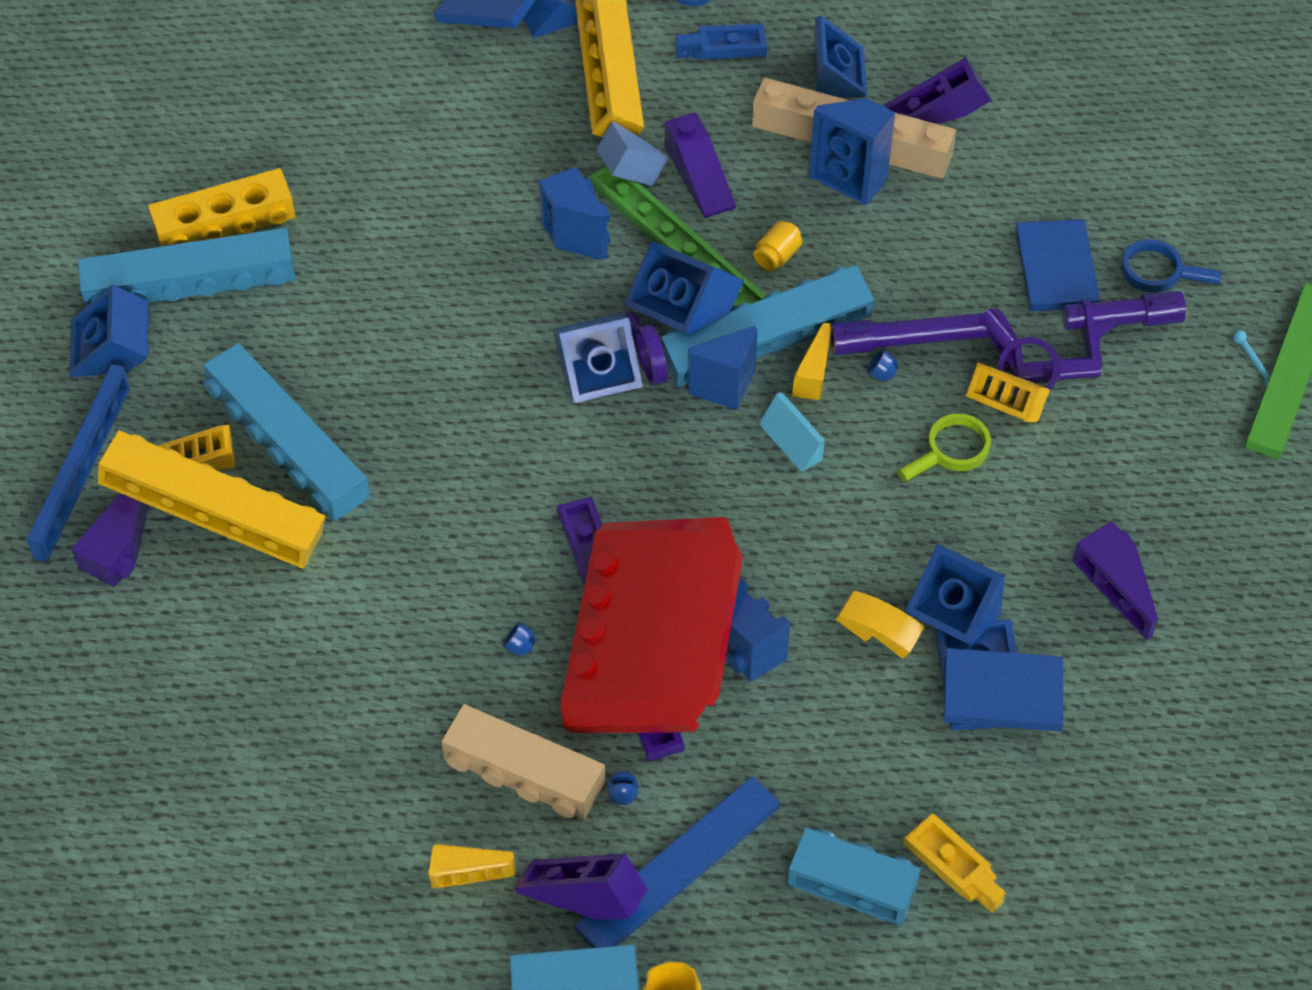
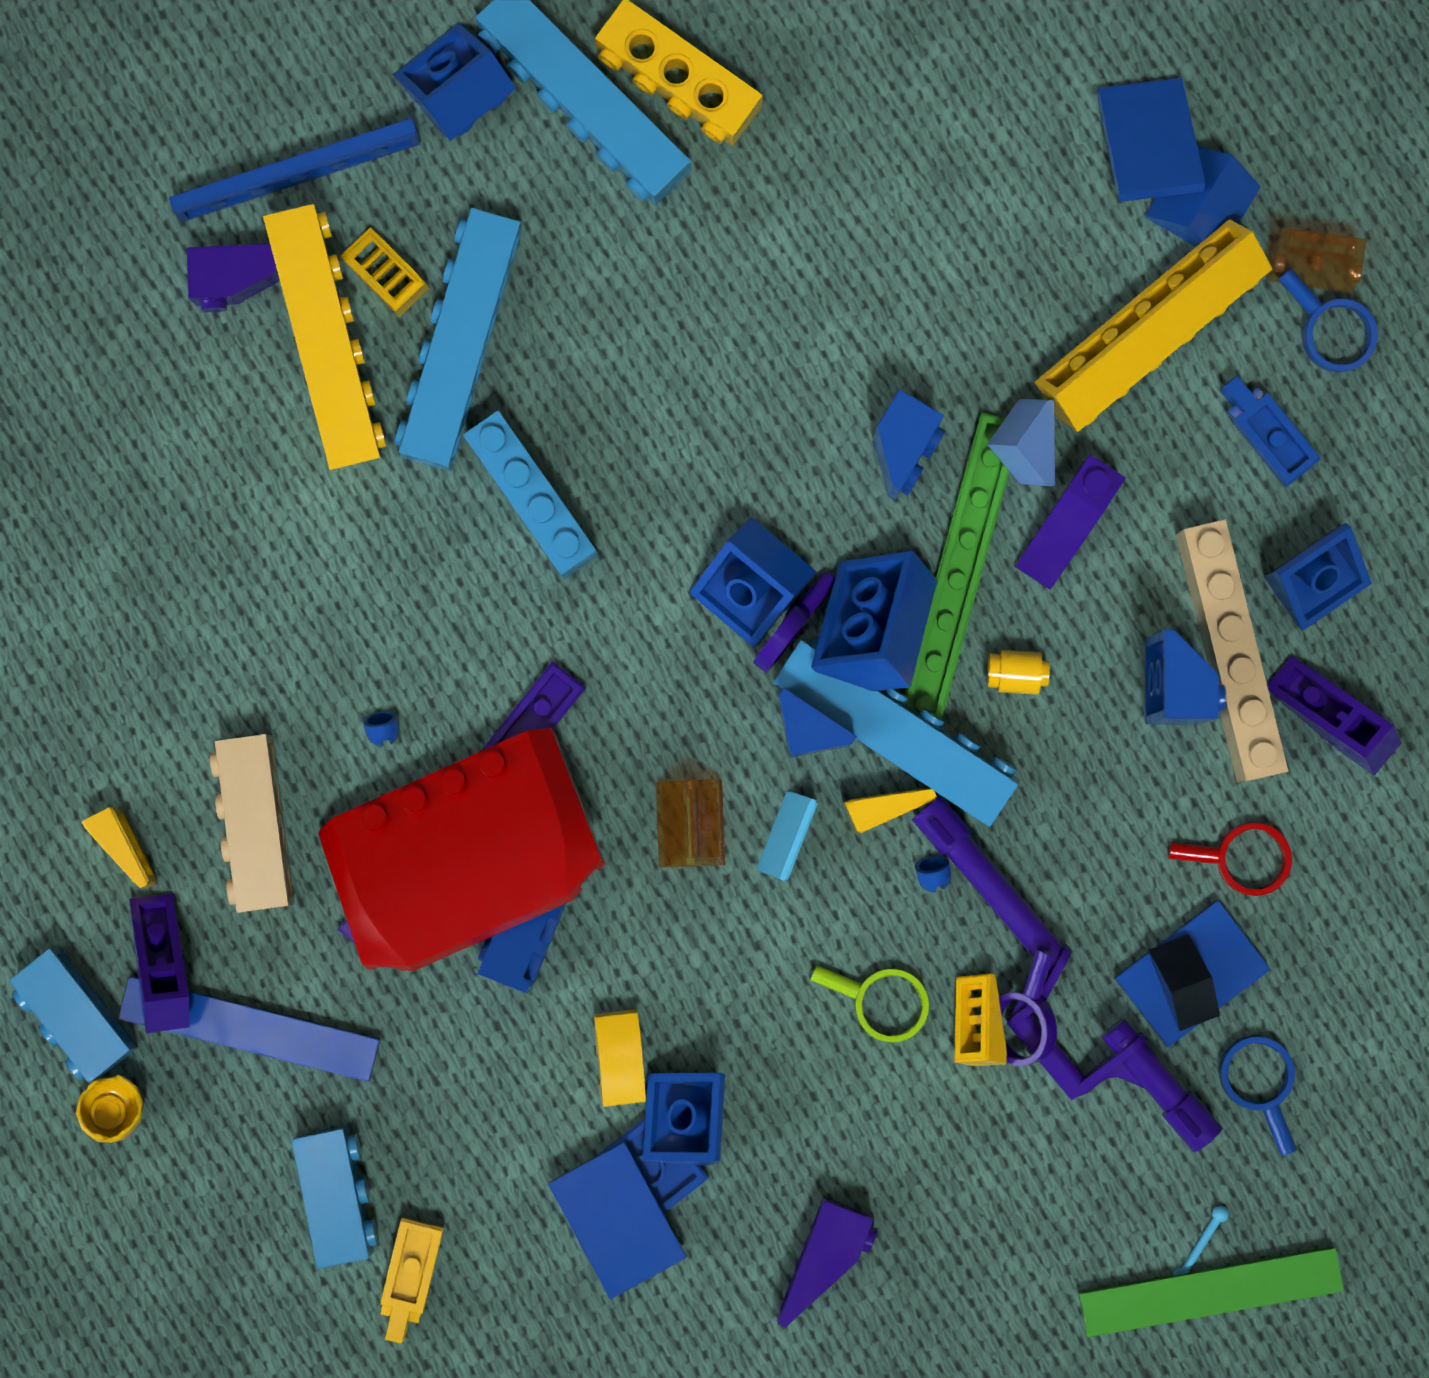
camera: 60 degrees right, 30 degrees up
(429, 447) = (531, 495): none -> dark azure brick
(622, 792) = (301, 922): blue hinge -> none
(736, 488) = (690, 823): none -> clear orange panel
(986, 210) = (1217, 856): none -> red piece
(1061, 261) = (1185, 982): none -> black slope

